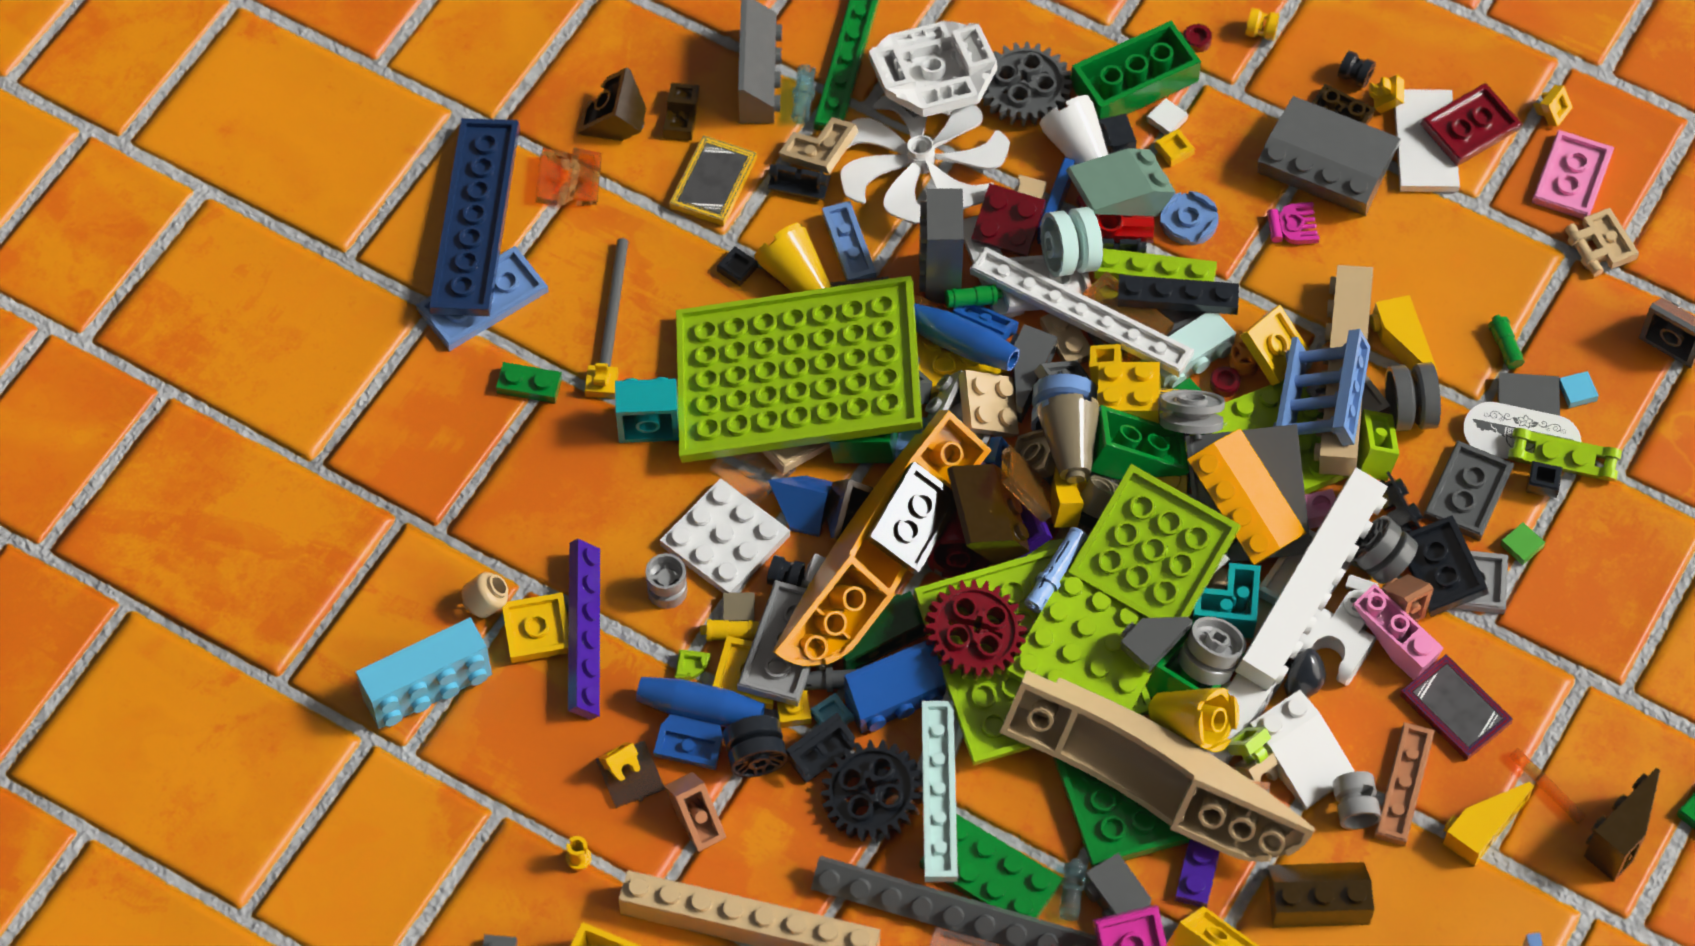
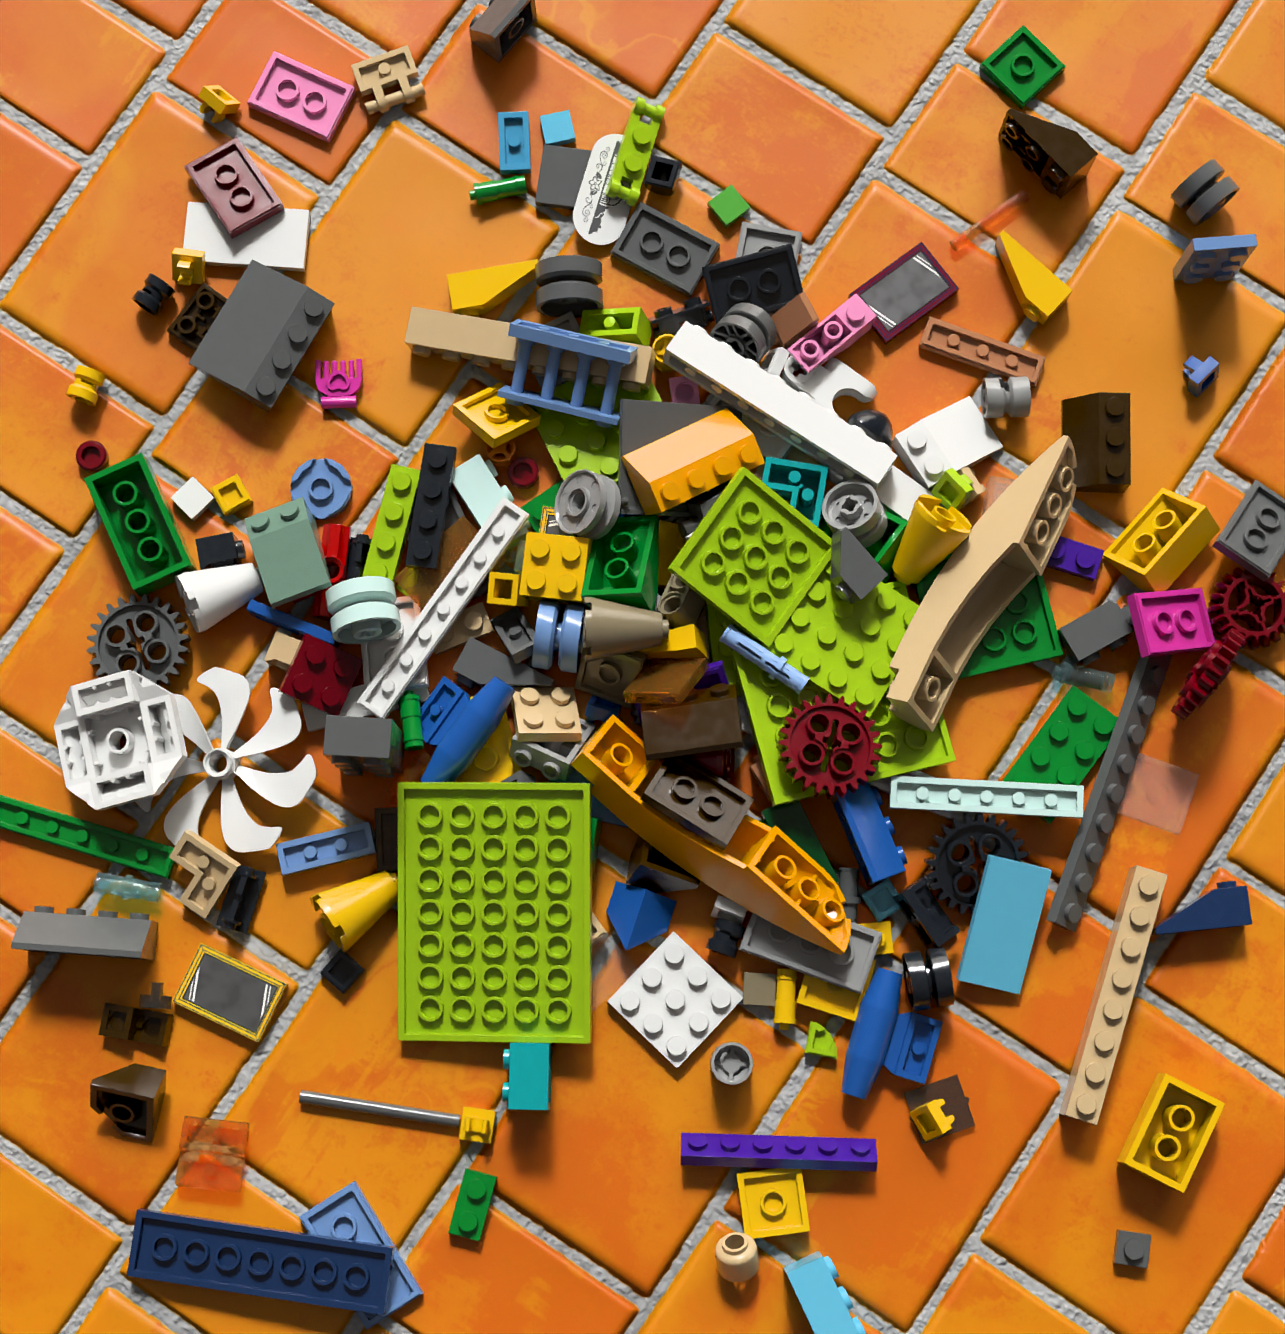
camera: 85 degrees left, 20 degrees up
(577, 855) = (1025, 1162): yellow pin -> none
(695, 811) = (989, 1044): nougat slope -> none
(704, 121) = (156, 998): none -> clear smoke tile
(813, 814) = (1003, 924): none -> medium azure tile
(1556, 351) = (514, 142): none -> dark azure plate

